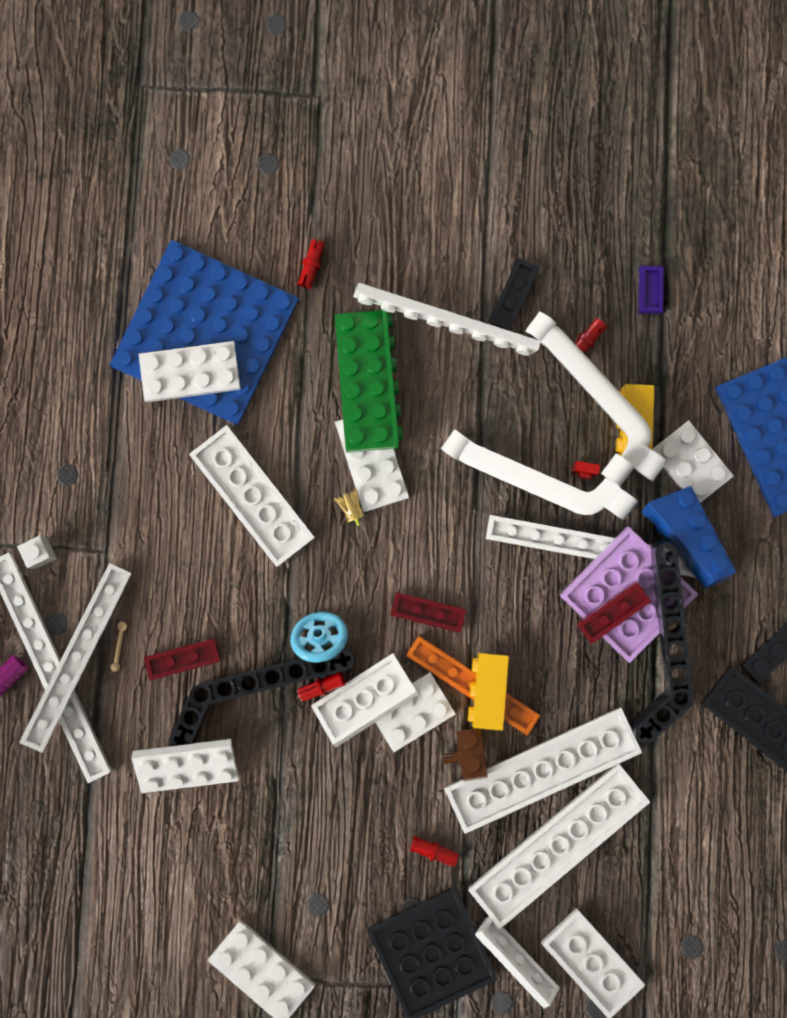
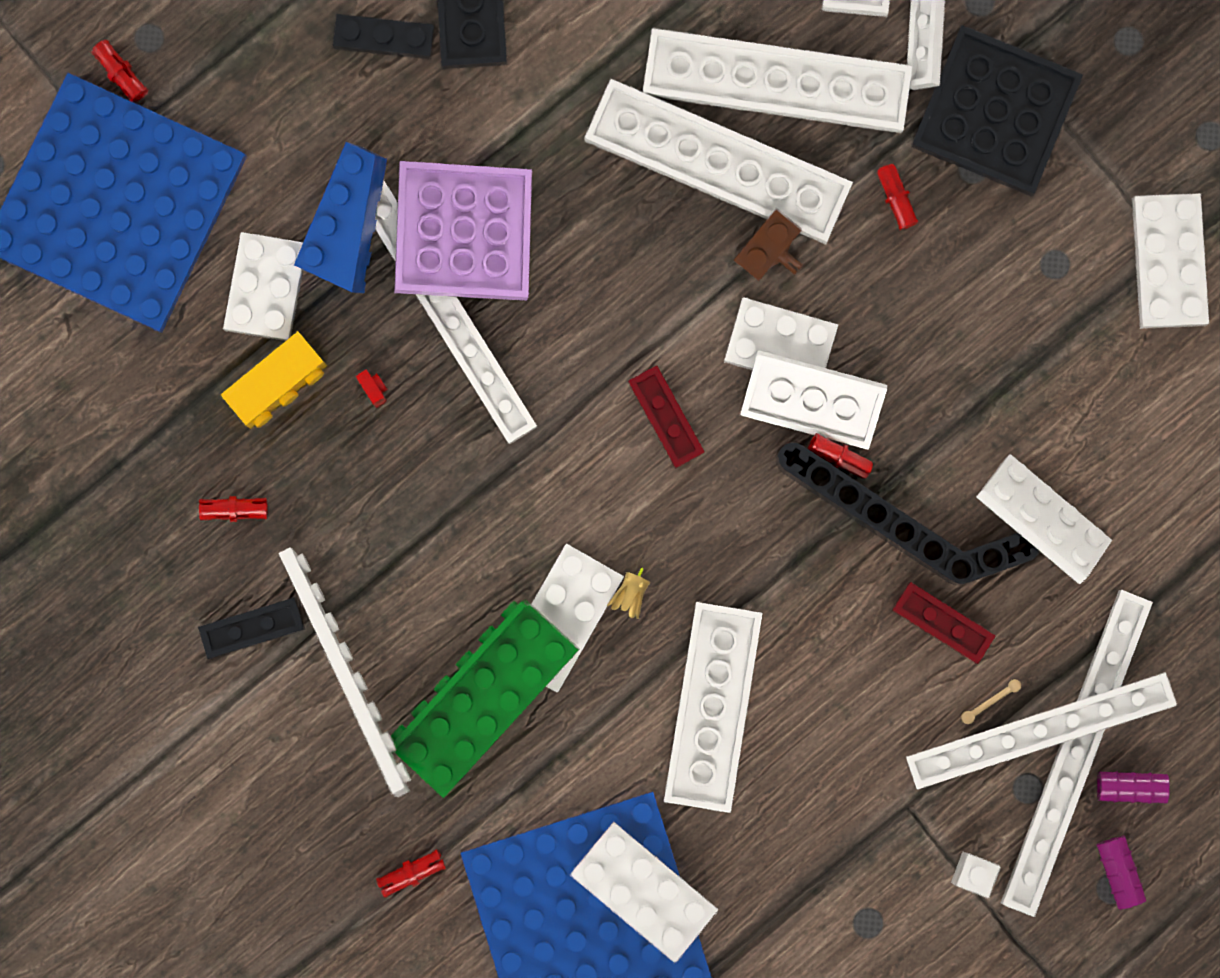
camera: 130 degrees left, 0 degrees up
(308, 623) = (811, 487): medium azure plate -> none
(461, 677) = (697, 307): orange tile -> none
(488, 691) = (689, 283): yellow brick -> none
(613, 612) = (496, 228): dark red plate -> none
(635, 456) = (376, 342): white piece -> none
(650, 289) = (115, 490): dark purple tile -> none
(667, 639) = (472, 151): black beam -> none

